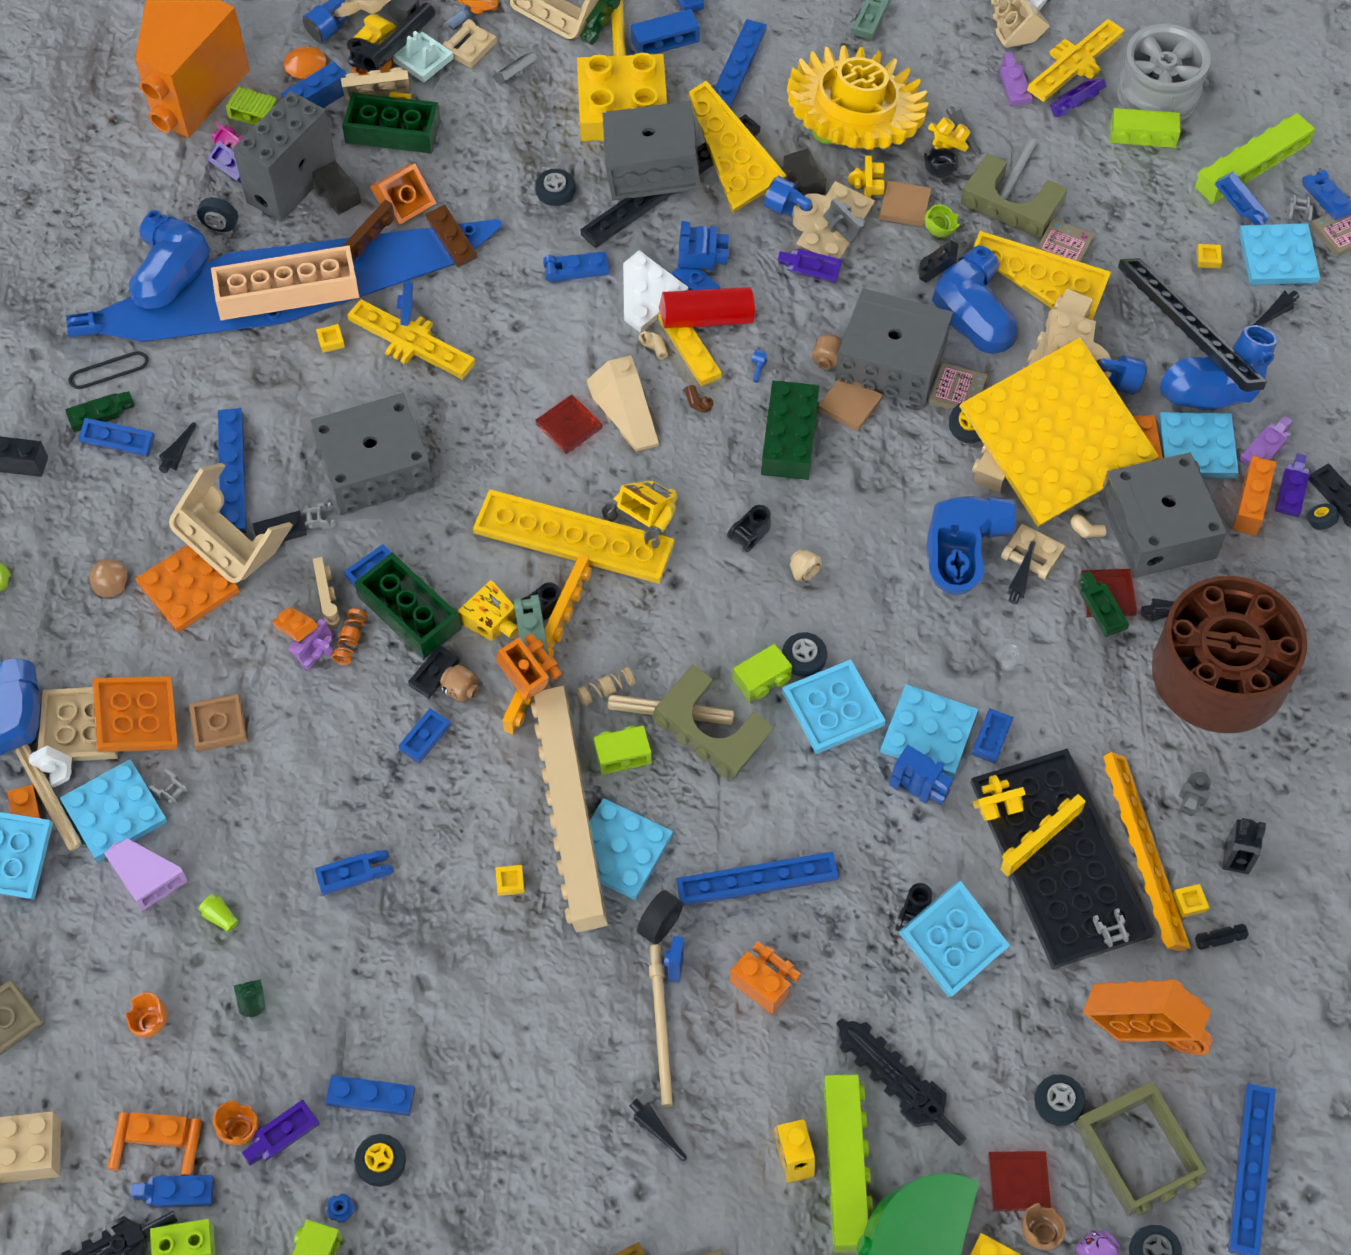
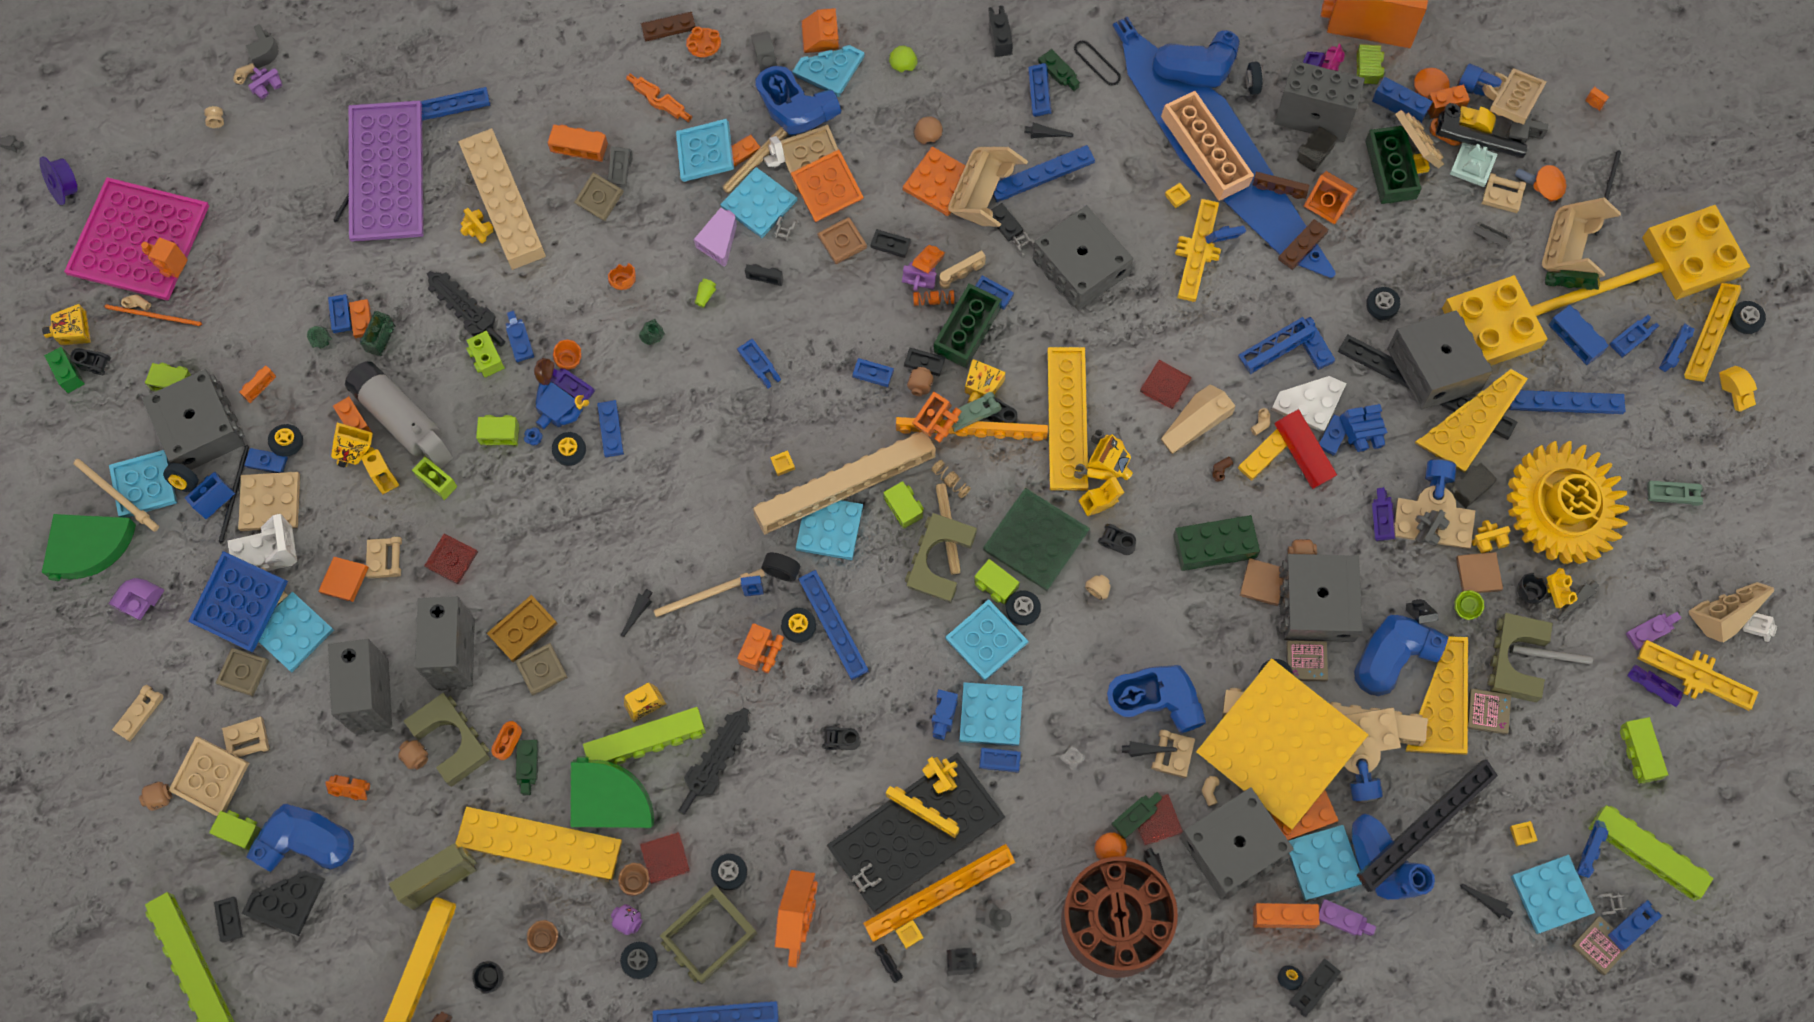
camera: 75 degrees right, 10 degrees up
(158, 1131) = (552, 312): orange plate -> none
(222, 835) = (766, 275): none -> black plate
(250, 664) = (890, 243): none -> black plate
(303, 1161) = (553, 402): none -> blue torso
(336, 48) = (1443, 97): none -> orange brick
(574, 294) = (1279, 348): none -> blue fence
(692, 525) = (1101, 498): none -> yellow brick
(719, 615) = (1036, 539): none -> clear green plate
(746, 912) = (798, 618): none -> black wheel
(760, 359) = (1278, 504): blue hand -> none
(954, 938) = (824, 769): medium azure plate -> none
(1131, 649) = (1110, 845): none -> orange hair
(1166, 52) = (1726, 730): light grey wheel -> none
(1293, 487) = (1309, 948): dark purple hinge -> none

